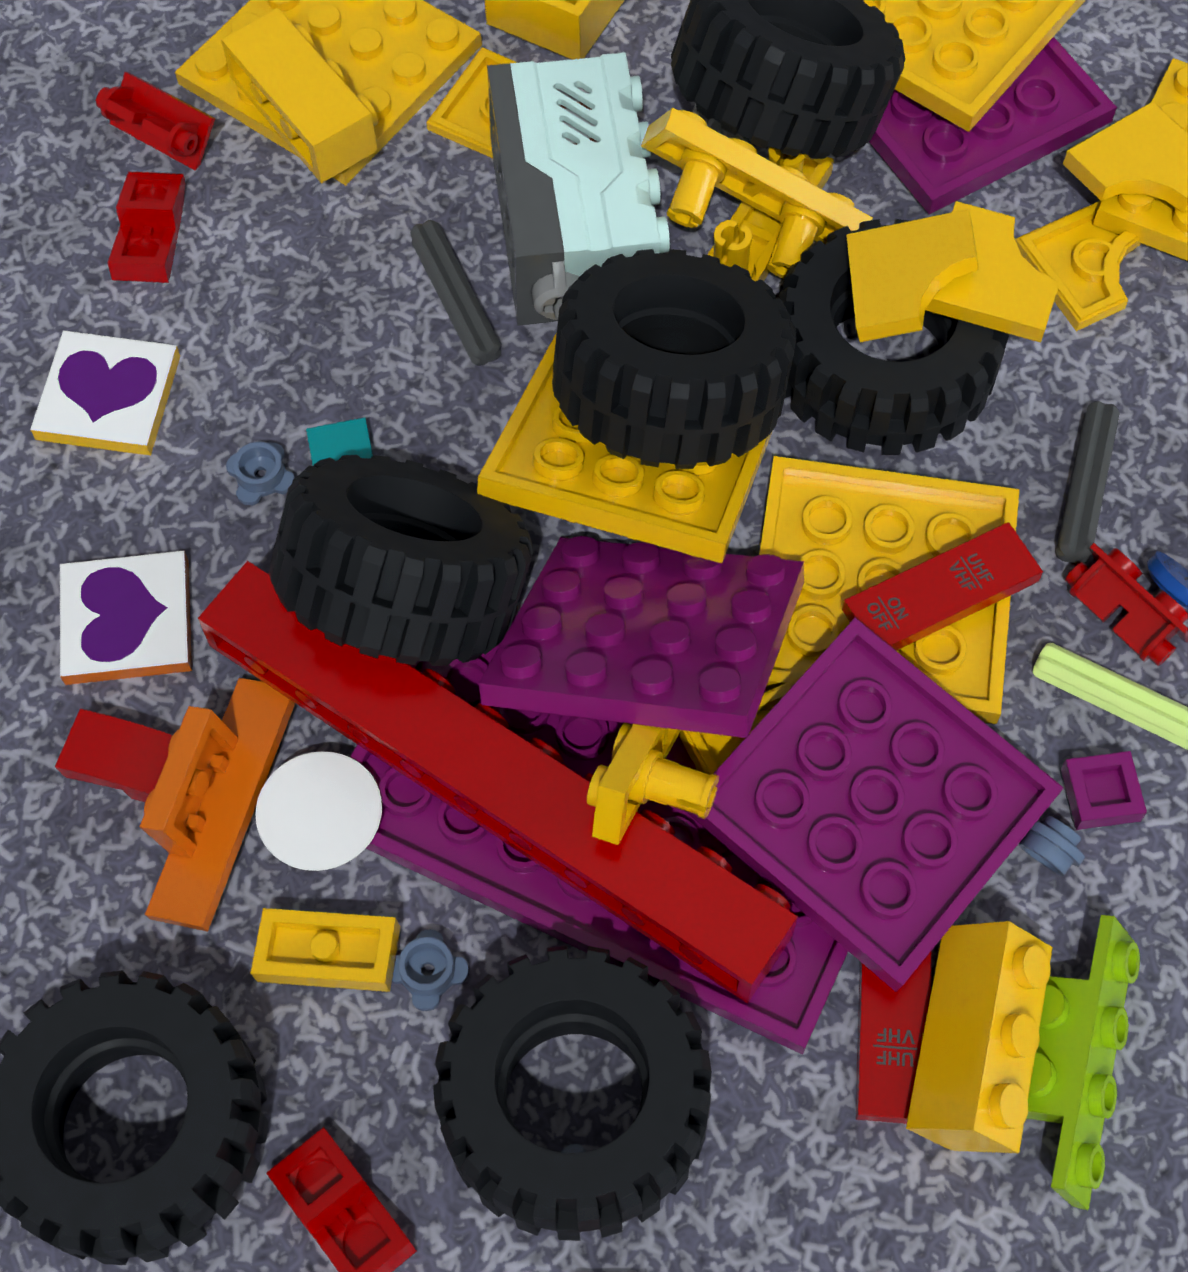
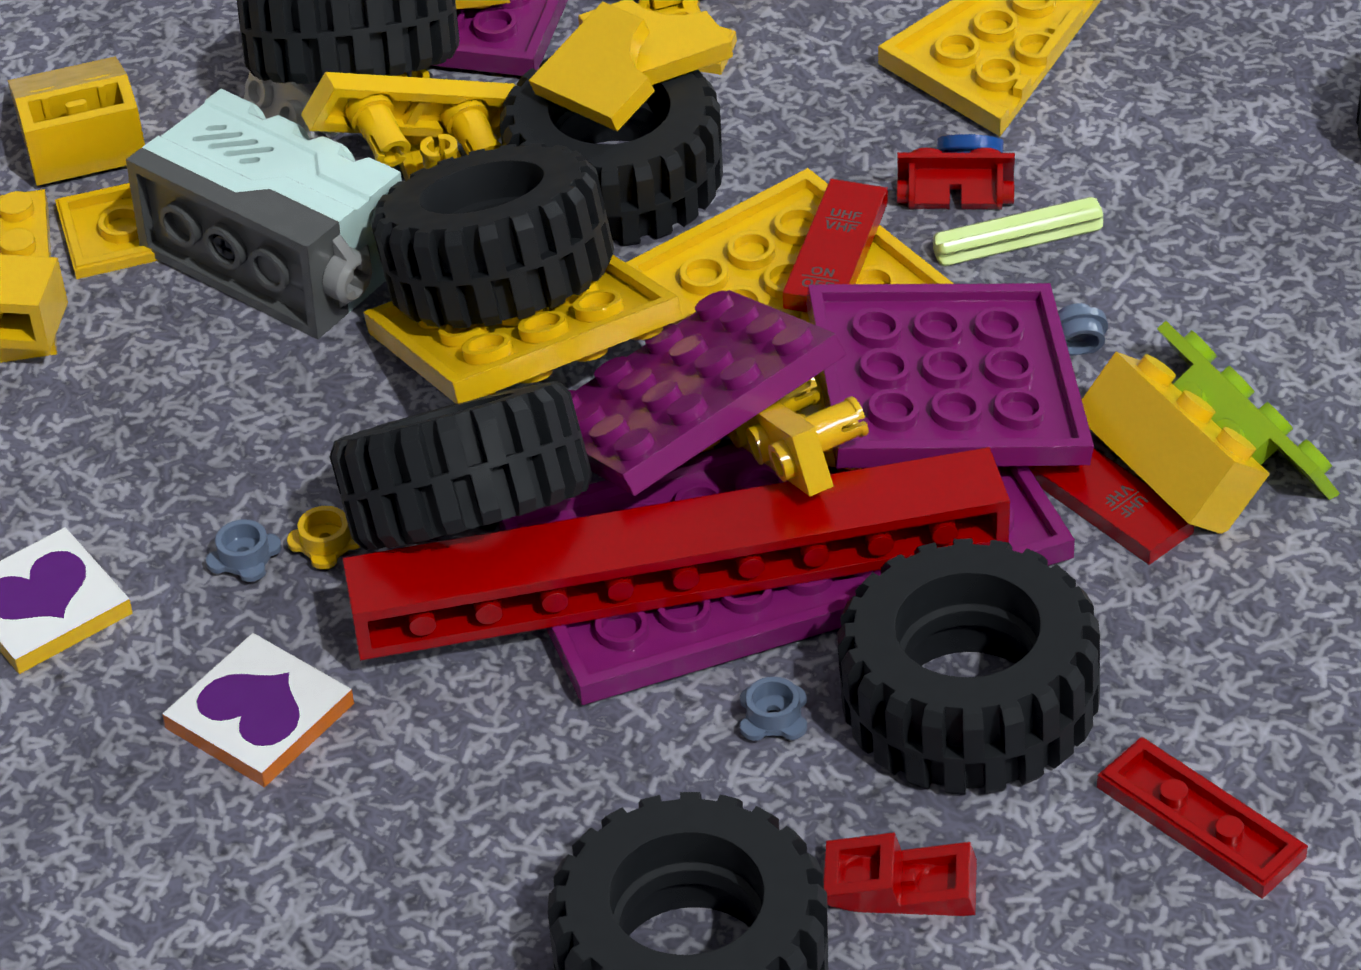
camera: 45 degrees left, 20 degrees down
(114, 753) = (387, 768): red slope -> none
(209, 799) = (494, 744): orange bracket -> none
(318, 811) = (578, 680): white sticker -> none
(326, 949) = (692, 748): yellow plate -> none
(339, 439) = (289, 494): teal tile -> none
(455, 293) = (245, 348): dark grey axle -> none
(1087, 483) = (841, 139): dark grey axle -> none
(1103, 790) = (1073, 277): magenta plate -> none

